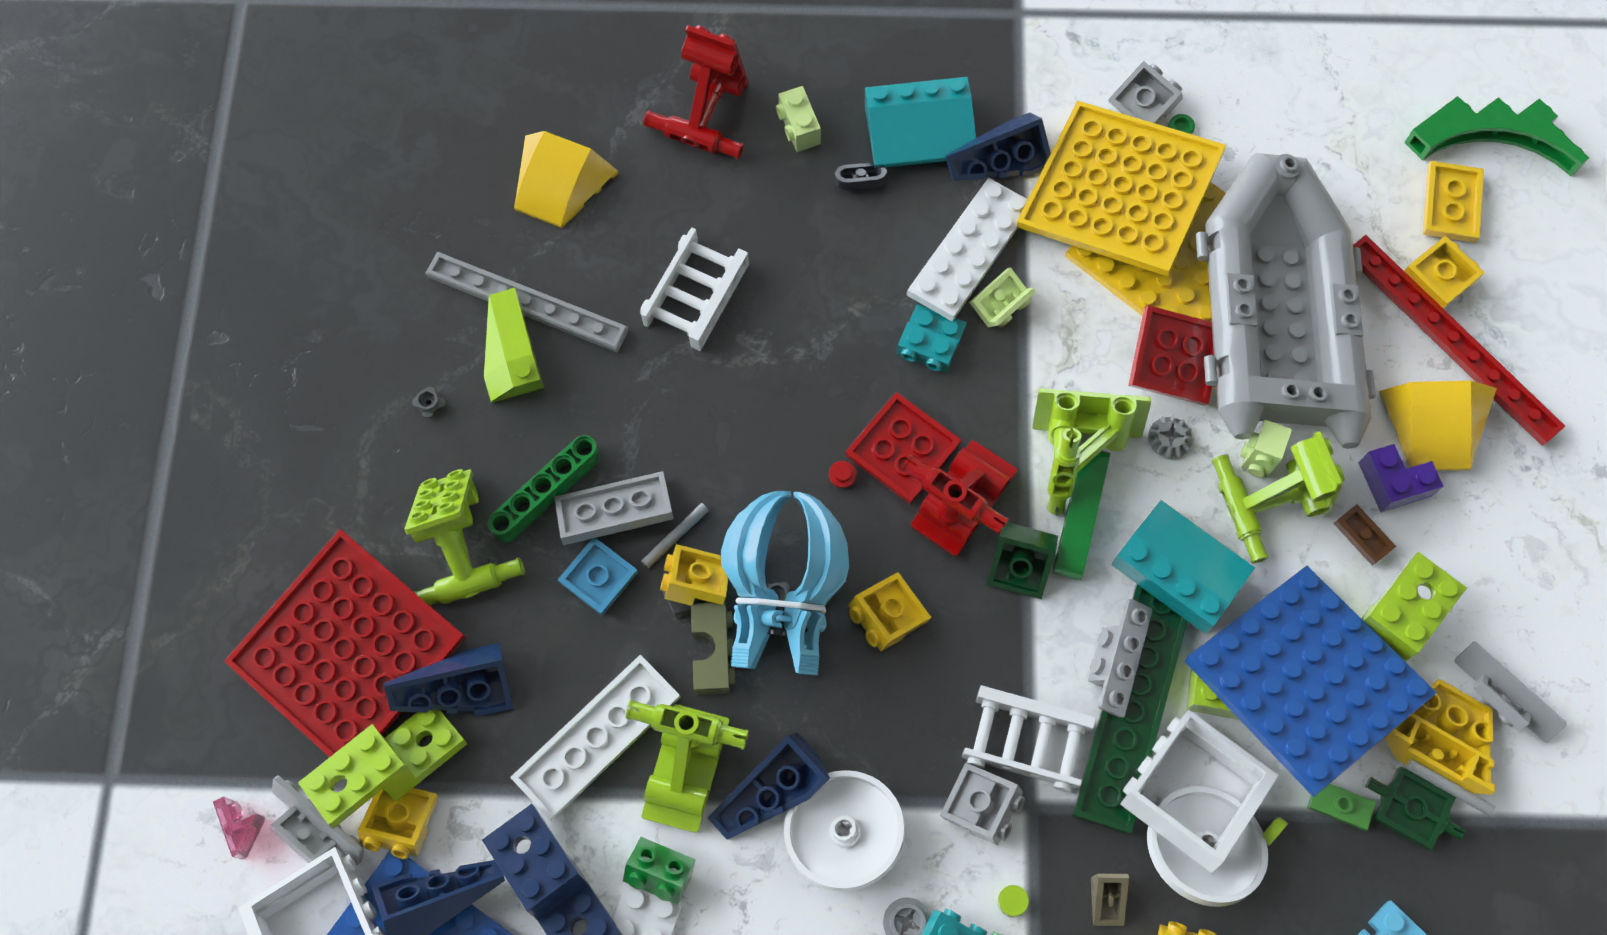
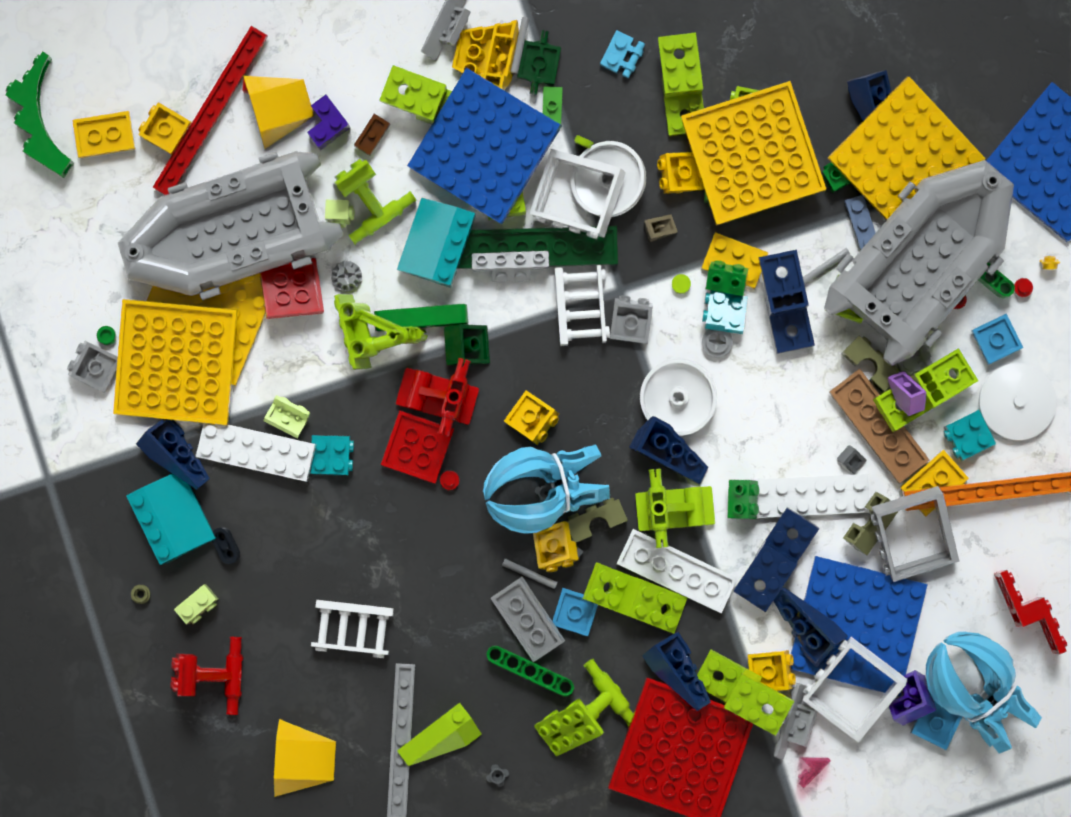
camera: 110 degrees left, 15 degrees up
(580, 660) = (635, 597): none -> lime bracket
(837, 59) = (134, 594): none -> olive plate

